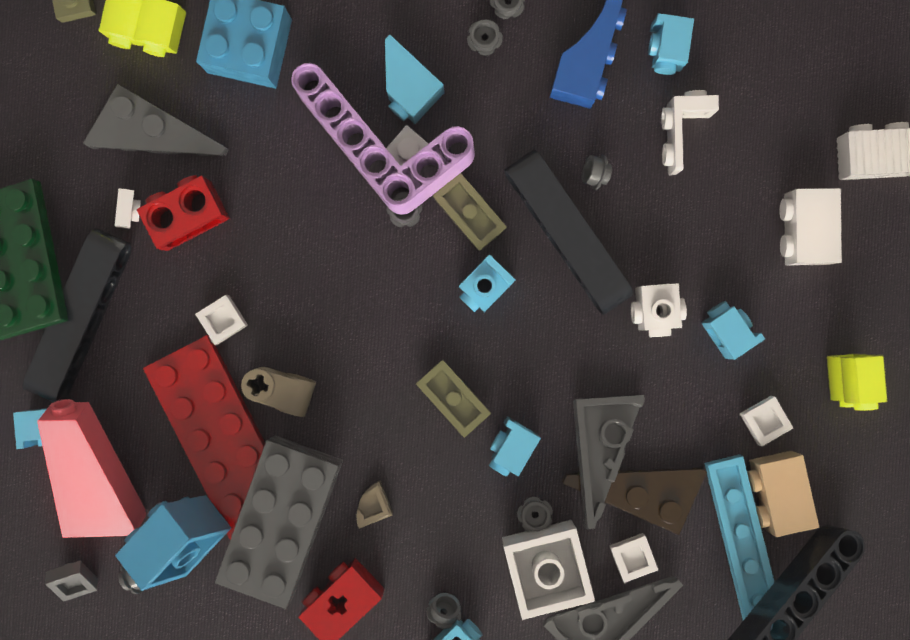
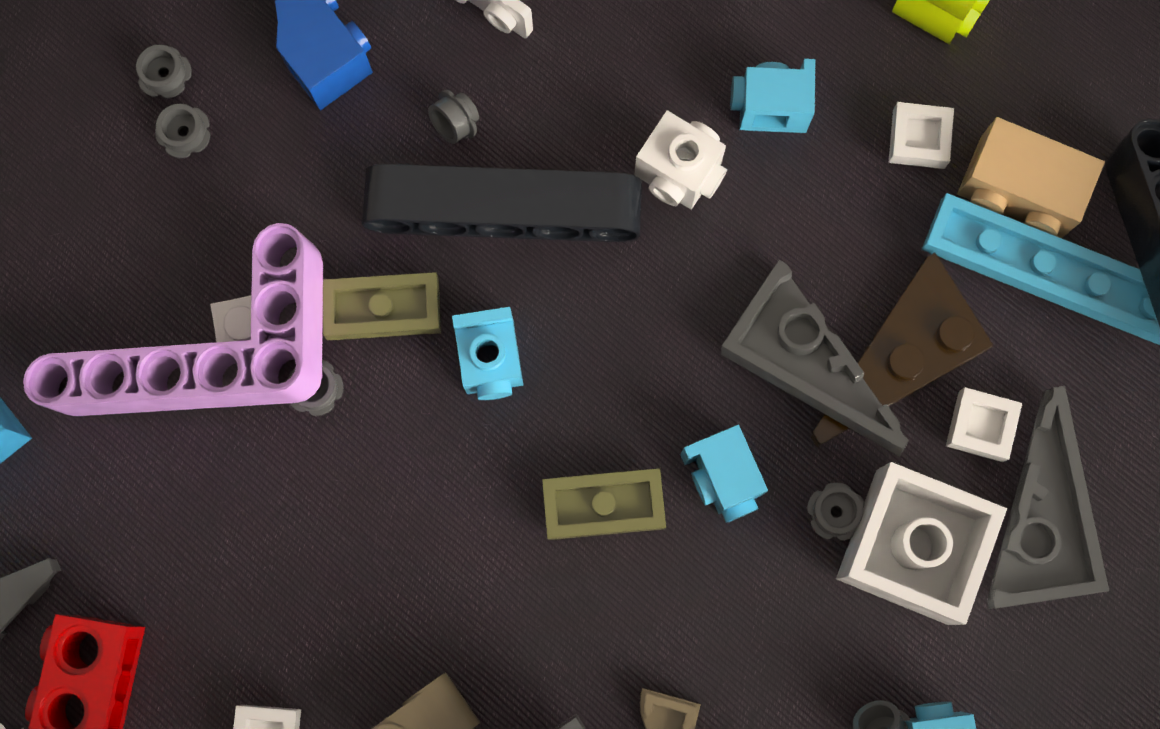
camera: 55 degrees left, 10 degrees down
(409, 83) = (163, 259): medium azure slope -> none

